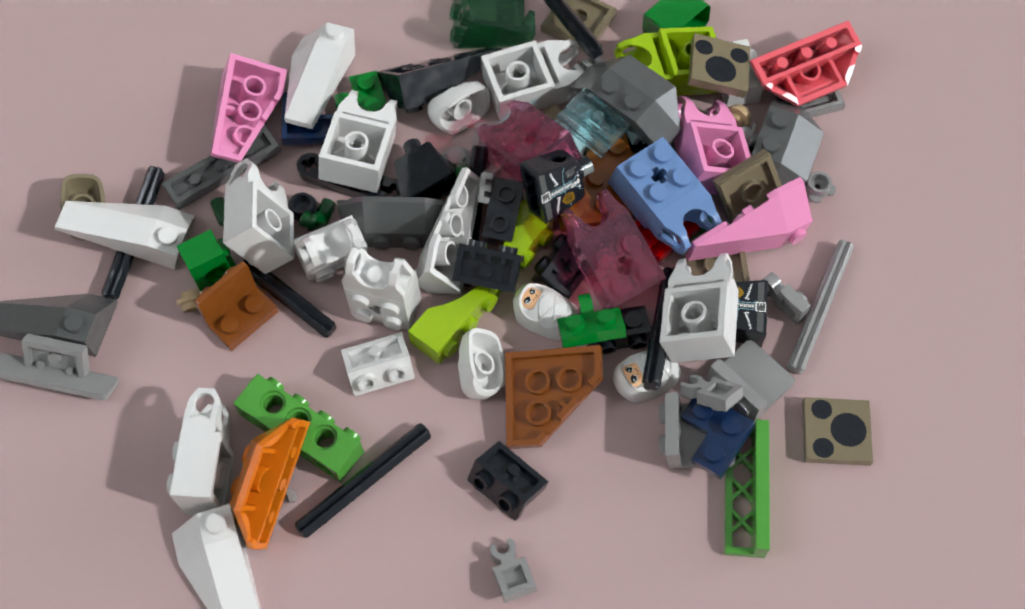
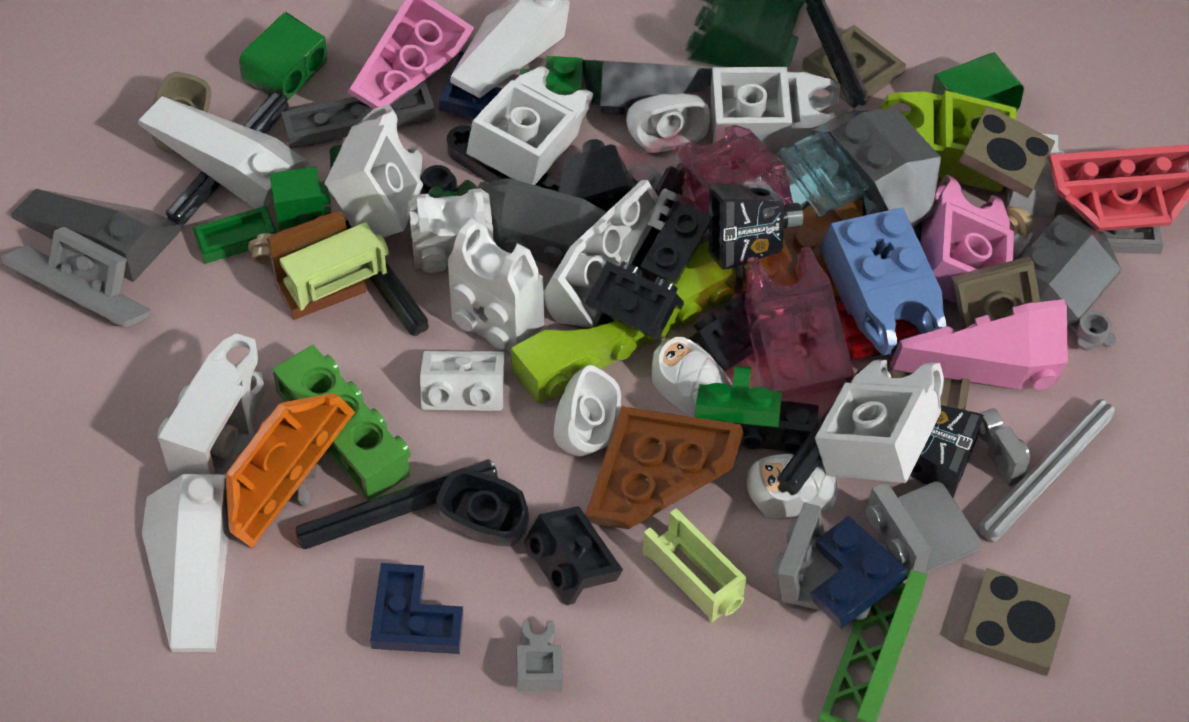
camera: 15 degrees right, 10 degrees down
(147, 135) = (283, 56): none -> green piece
(160, 294) = (232, 234): none -> green tile
(250, 302) = (334, 264): none -> yellowish green window
(404, 575) = (404, 622): none -> dark blue plate
(431, 465) = (483, 507): none -> black piece
(619, 460) = (705, 556): none -> yellowish green window
(716, 393) = (867, 521): light grey plate -> none

